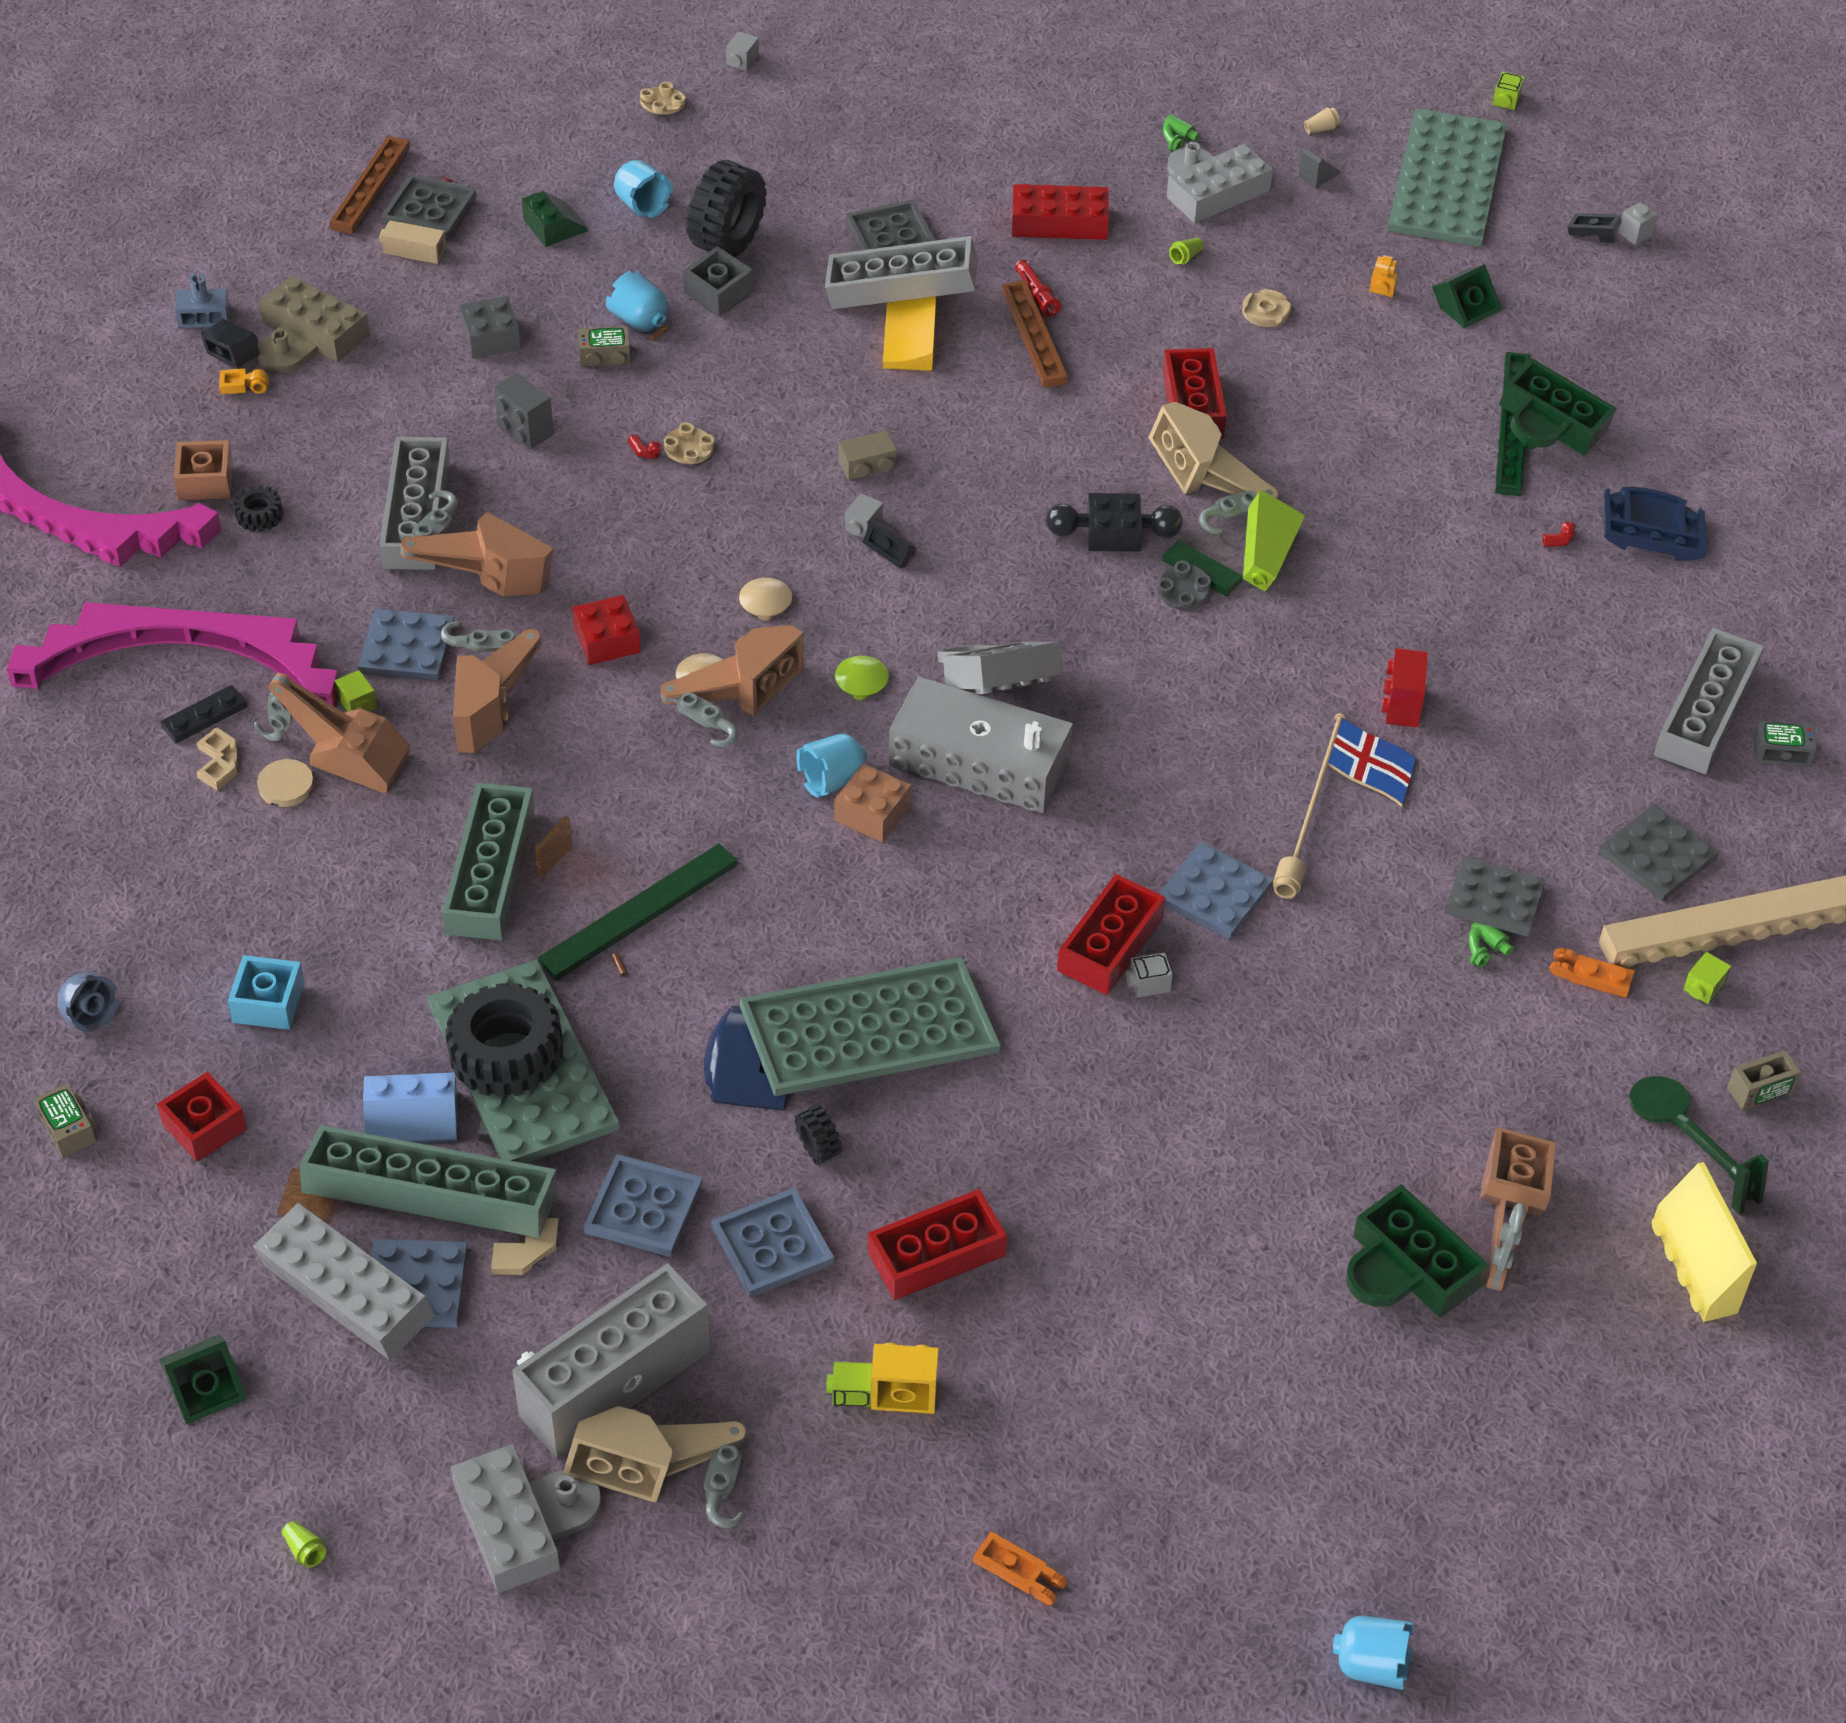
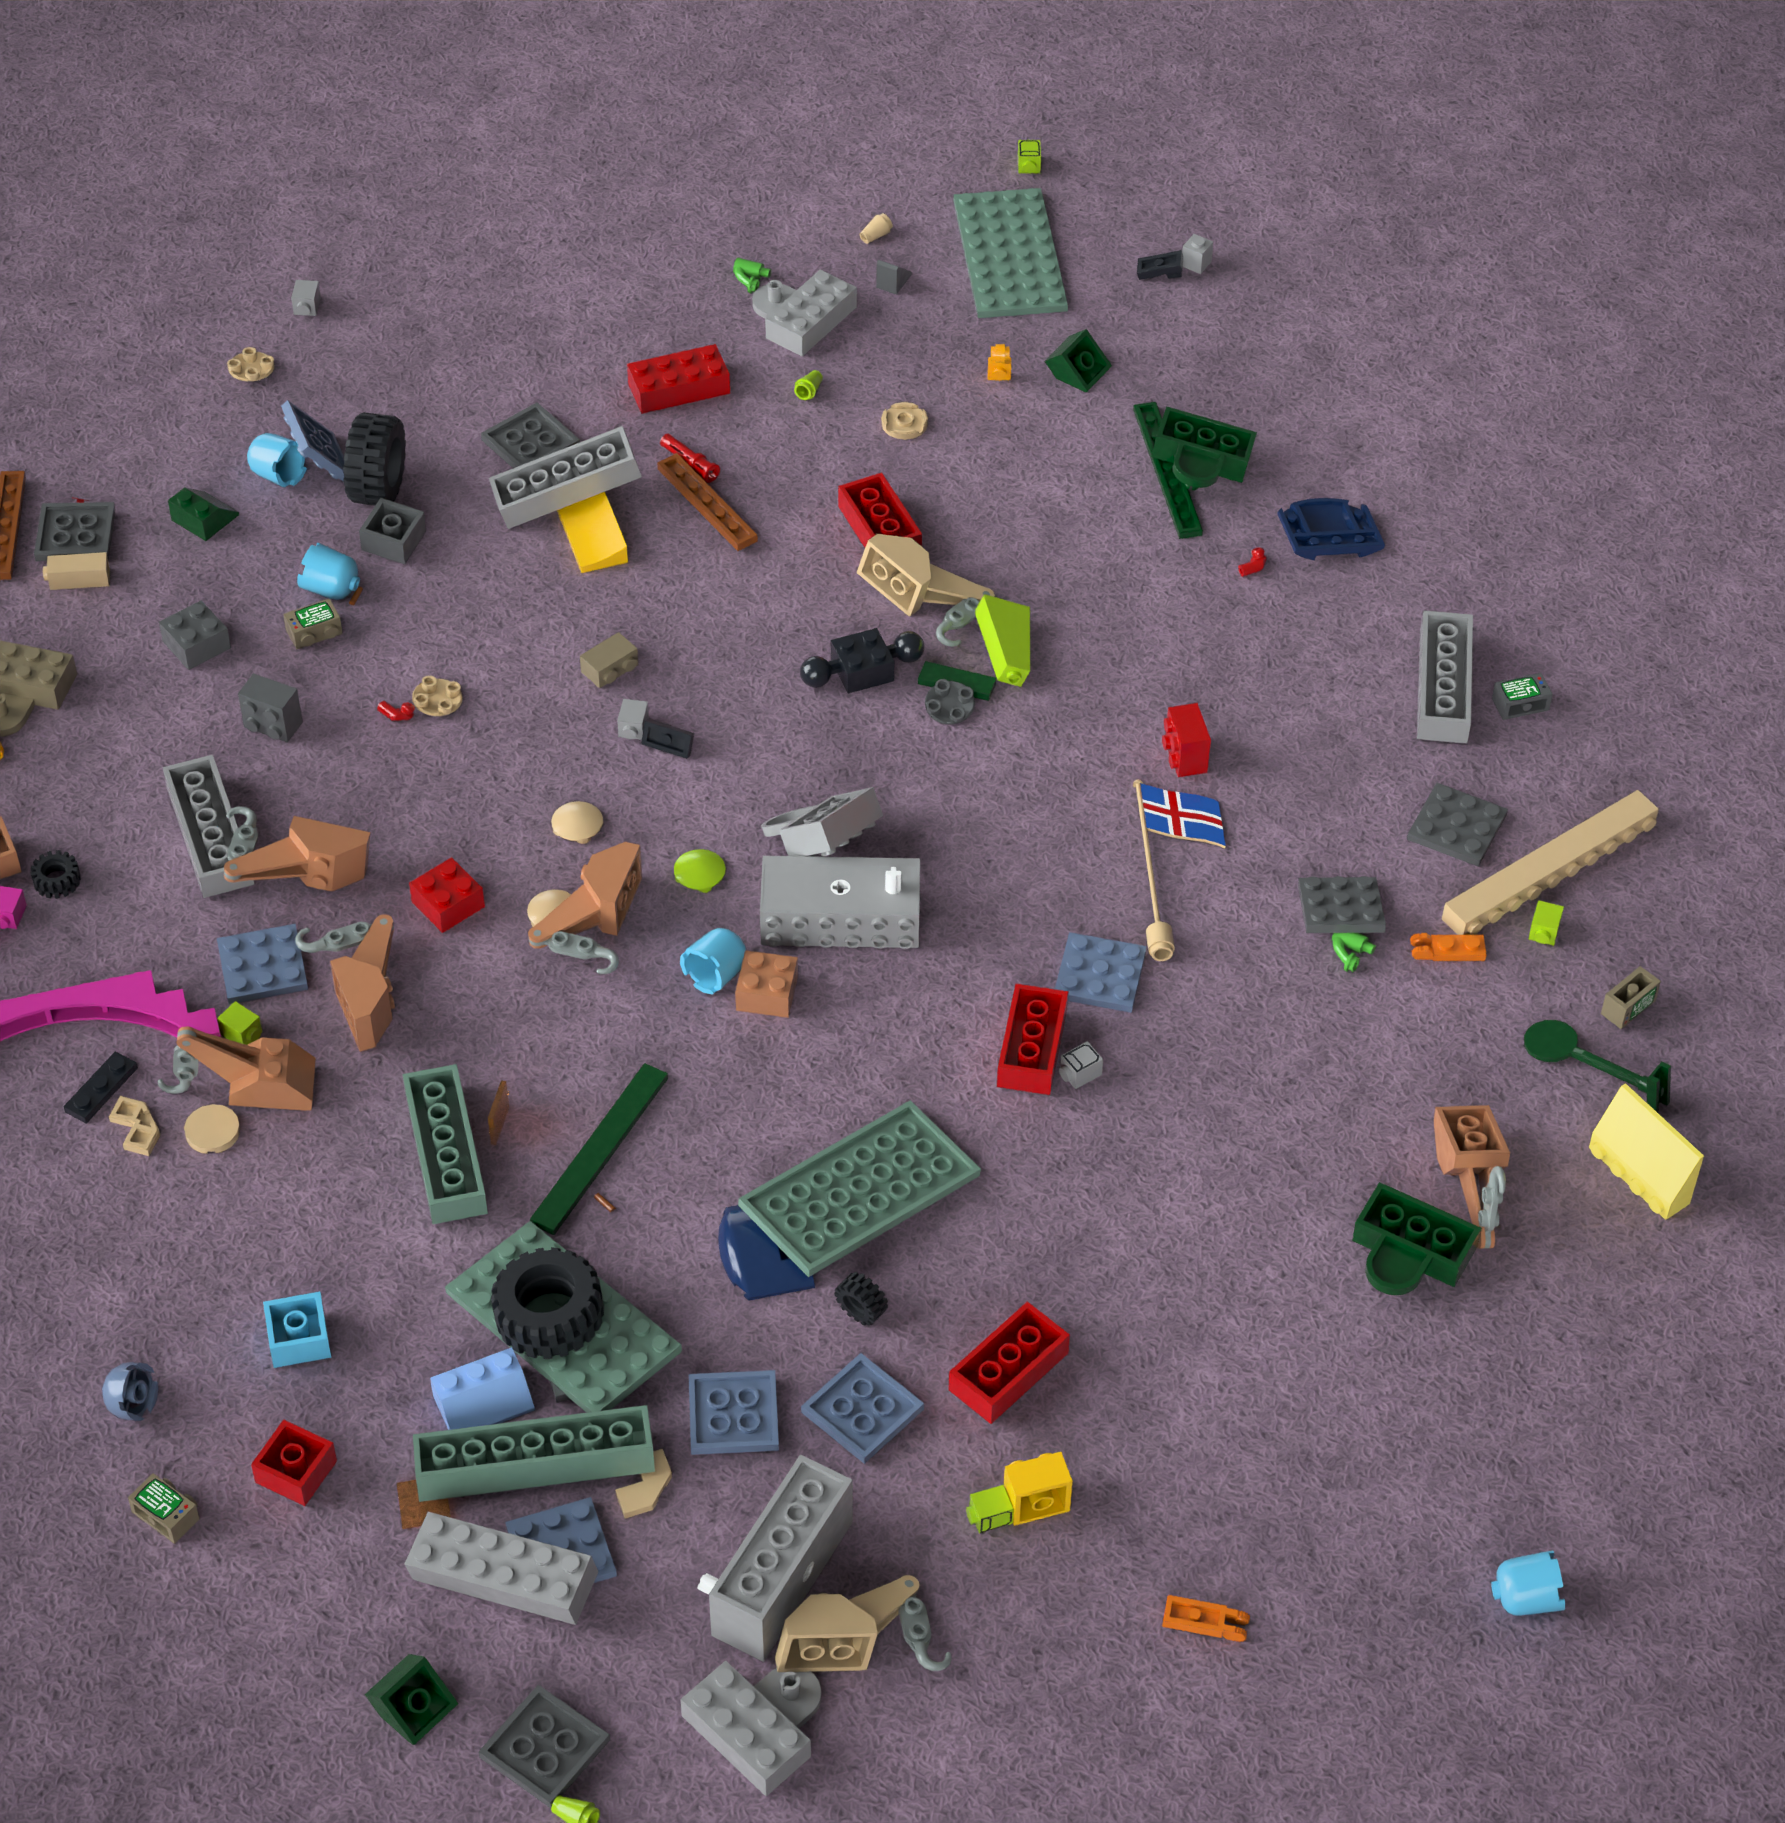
camera: 20 degrees left, 0 degrees up
(305, 1468) = (544, 1746): none -> dark grey plate
(676, 172) = (314, 440): none -> sand blue plate

